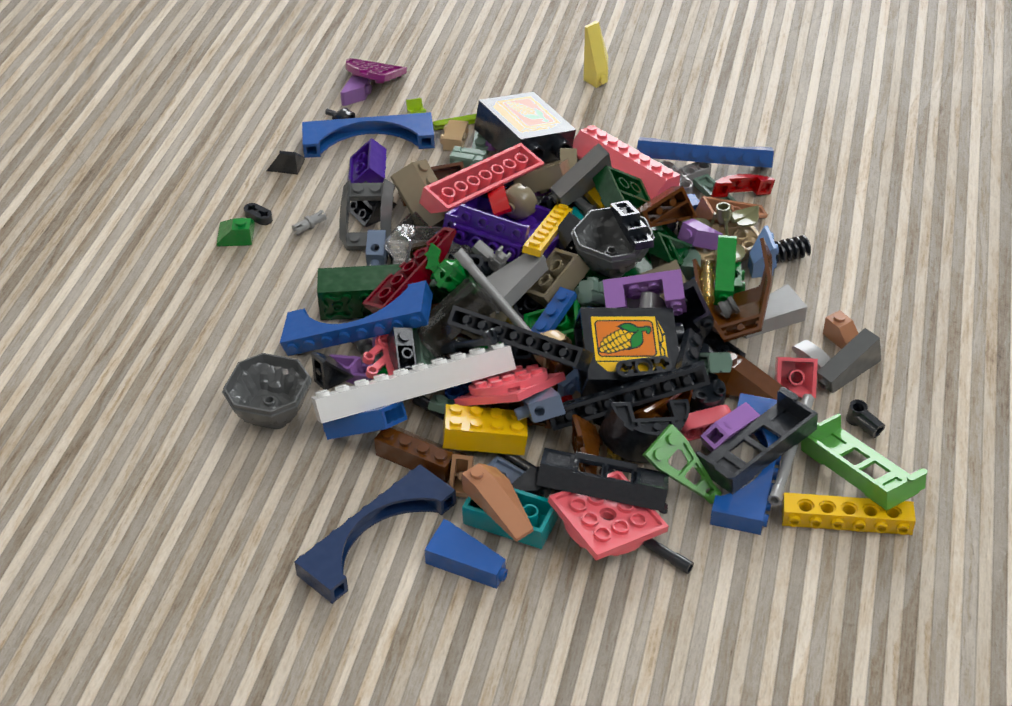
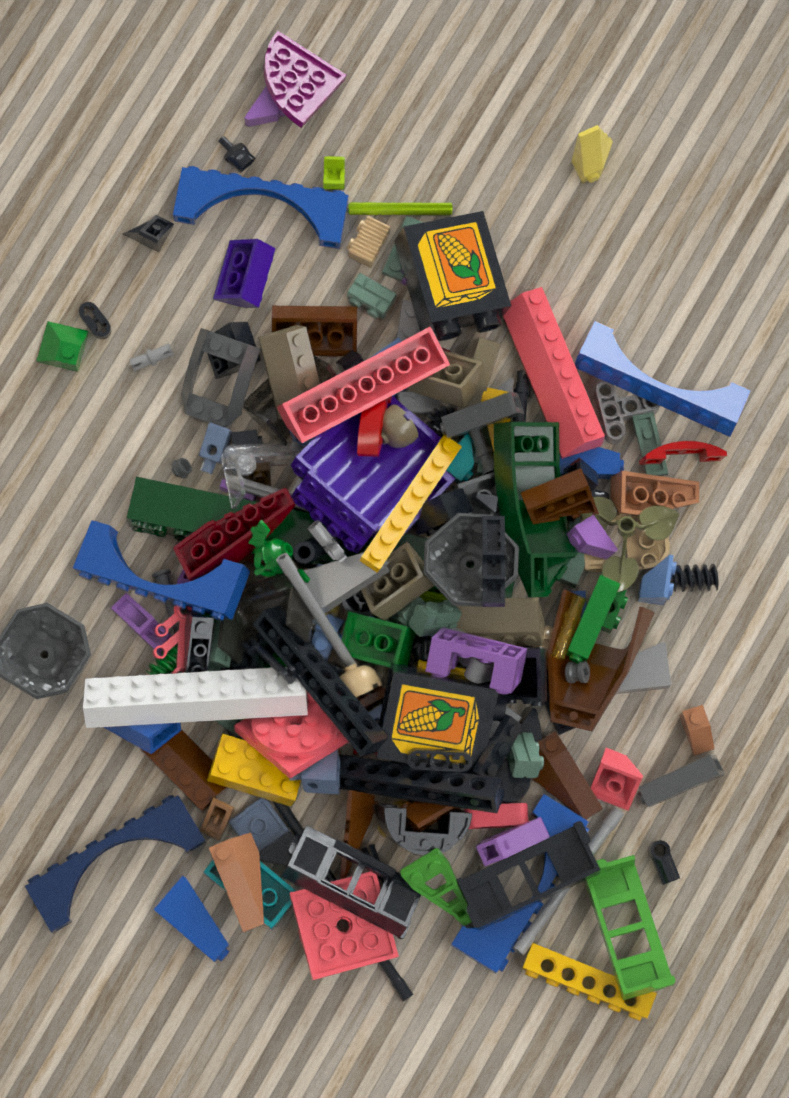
camera: 10 degrees right, 35 degrees up
(328, 371) = (119, 626): black slope -> none
(555, 311) = (376, 634): blue plate -> none
(809, 350) = (650, 752): light grey slope -> none

